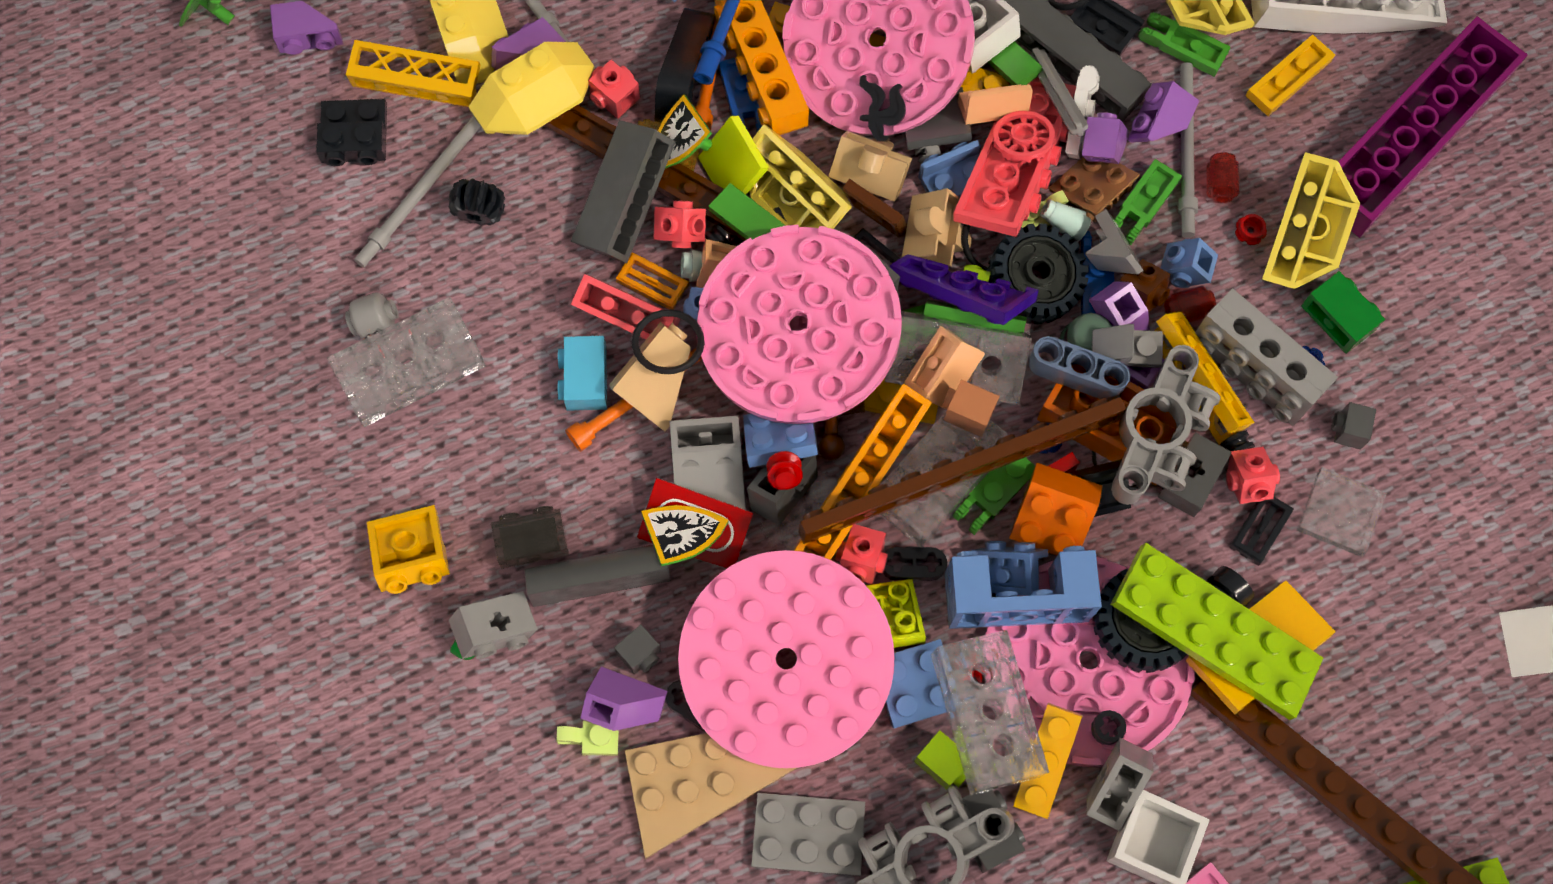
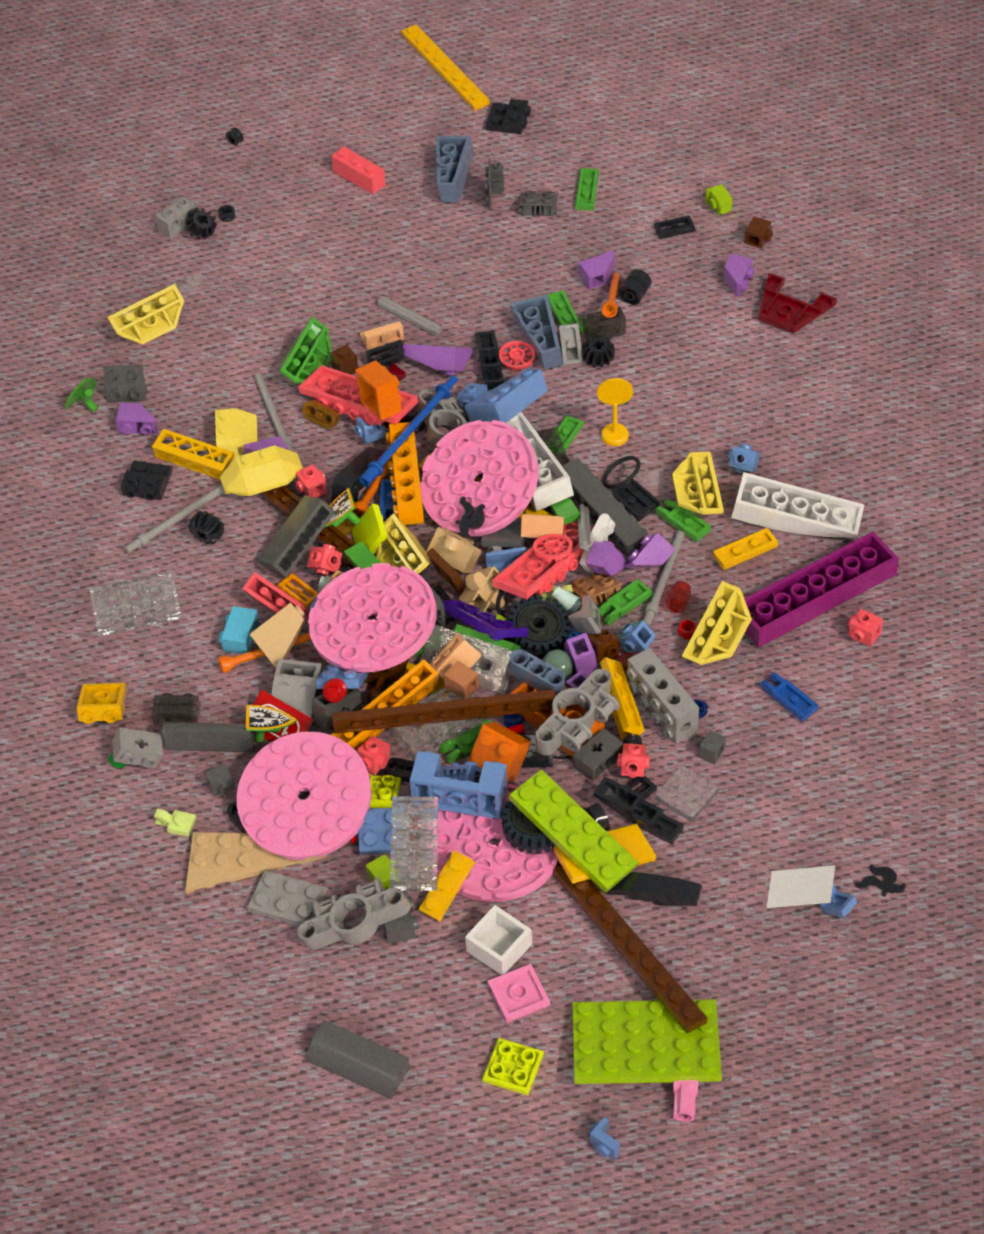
camera: 20 degrees right, 20 degrees down
(370, 315) = (122, 573): light grey head -> none
(621, 701) = (200, 803): medium lavender slope -> none
(668, 370) = (288, 627): black tyre -> none
(1098, 722) = (490, 882): black bush -> none
(1119, 784) = (485, 896): light grey brick -> none
(1129, 346) = (574, 669): light grey slope -> none
(1285, 560) = (638, 811): none -> black slope
(1343, 312) = (727, 683): green brick -> none
(1365, 689) = (658, 888): none -> black slope
(1433, 313) = (789, 697): none -> blue hinge
(1506, 176) = (865, 627): none -> coral brick

